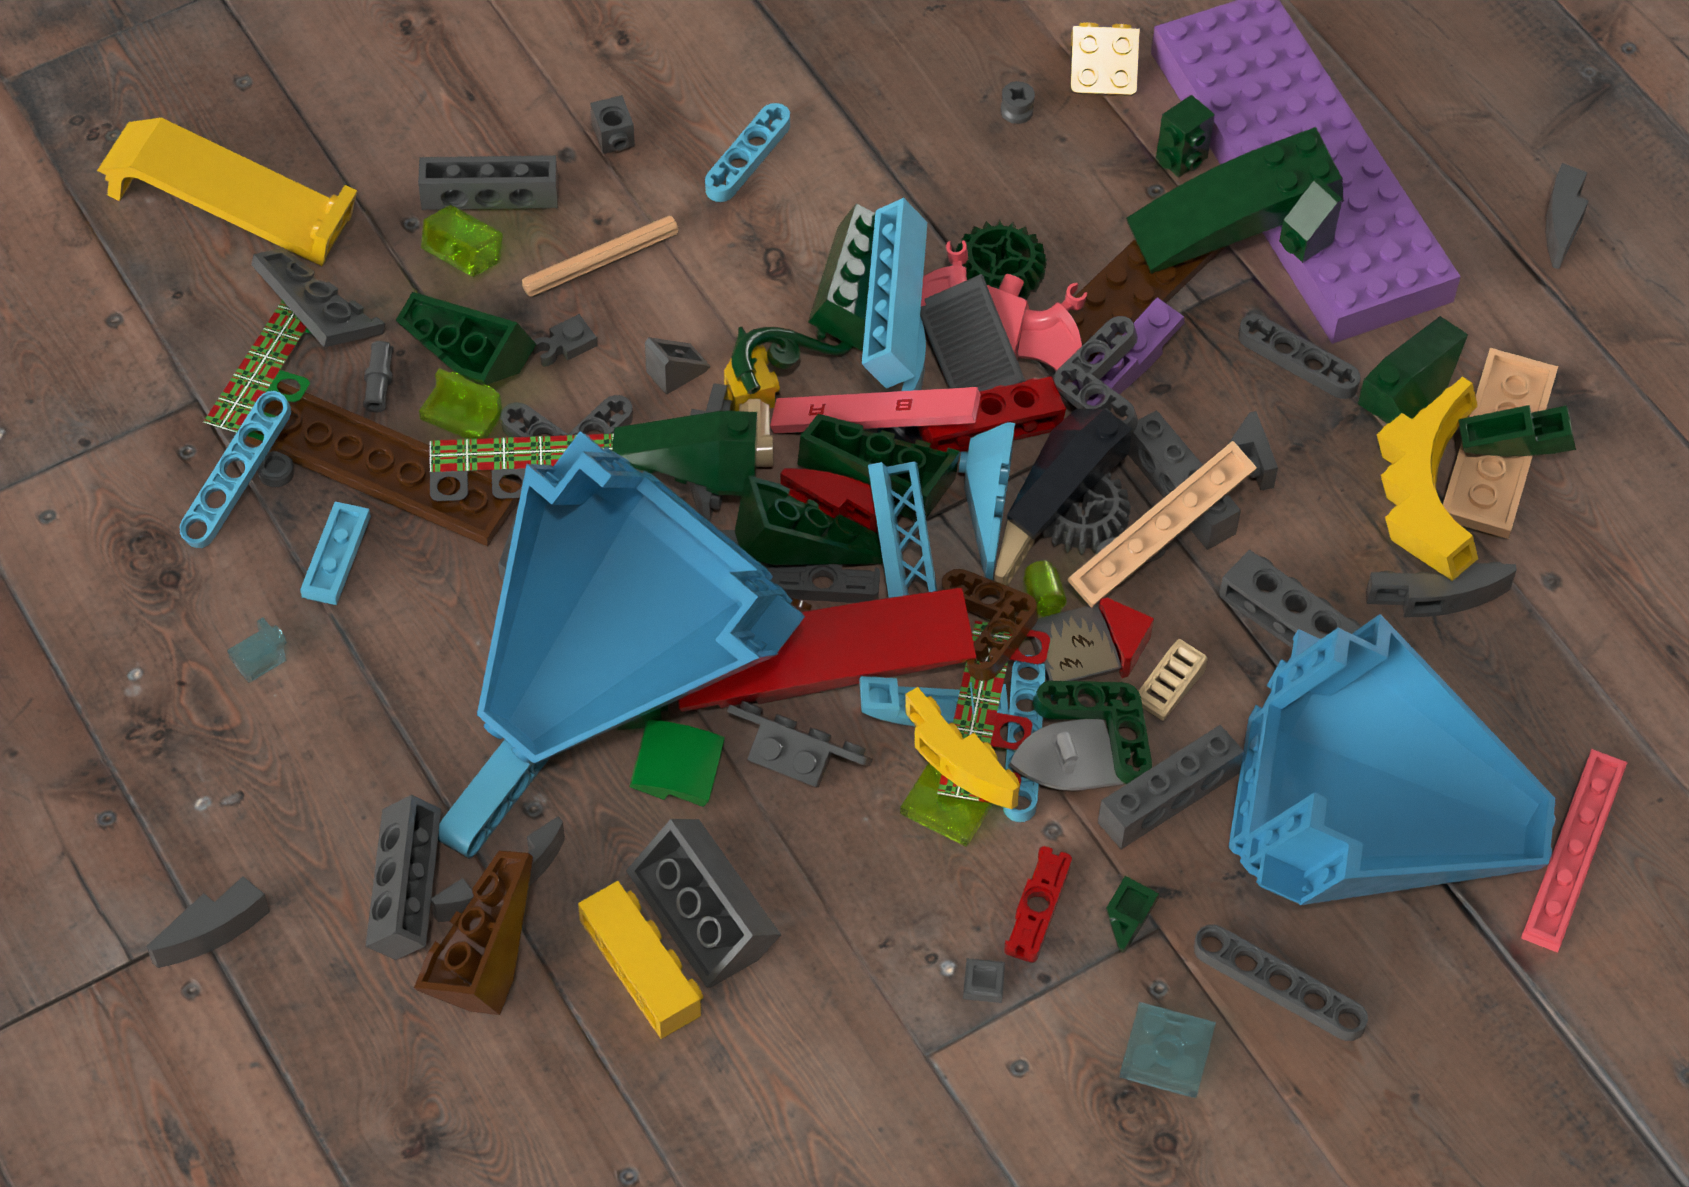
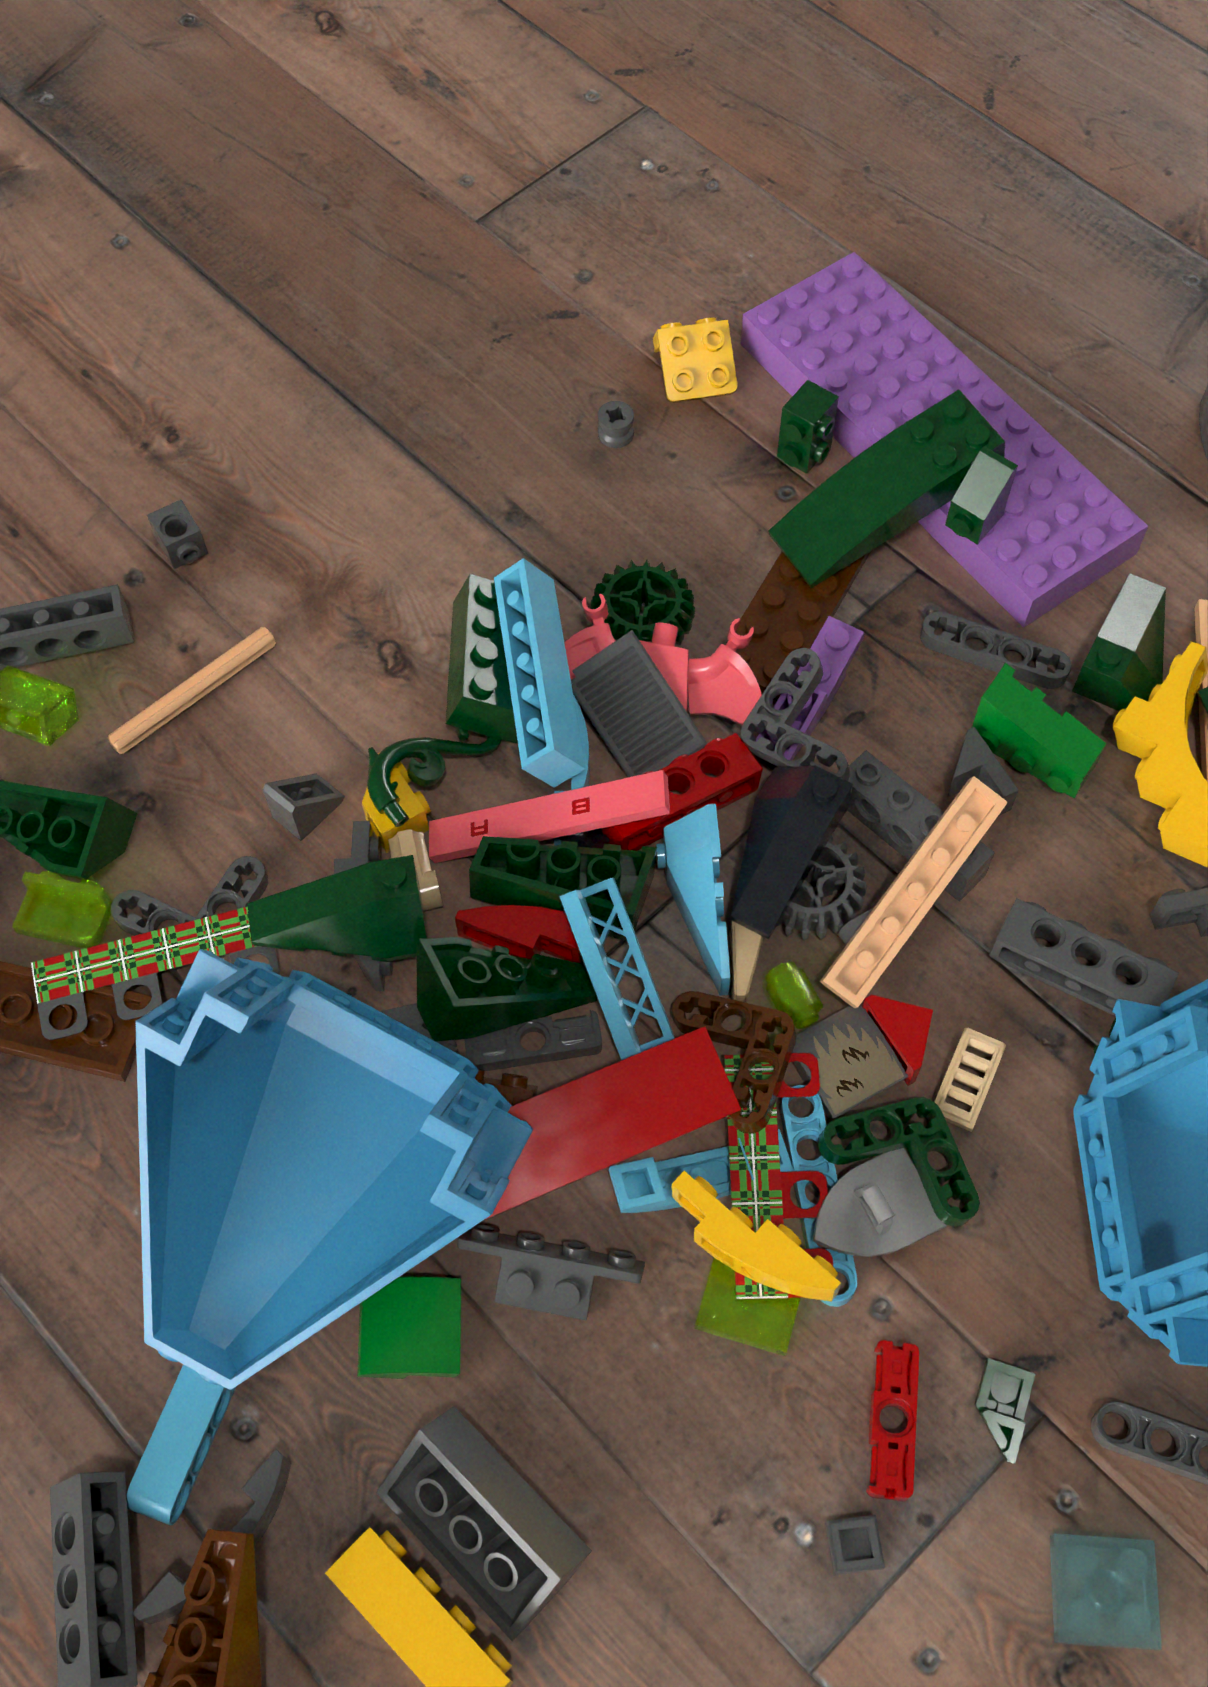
camera: 10 degrees left, 5 degrees up
(566, 338) = (173, 796): dark grey plate -> none
(744, 150) = (331, 535): medium azure beam -> none
(1170, 787) = (1009, 1224): dark grey brick -> none
(1306, 429) = (1035, 736): none -> green wedge

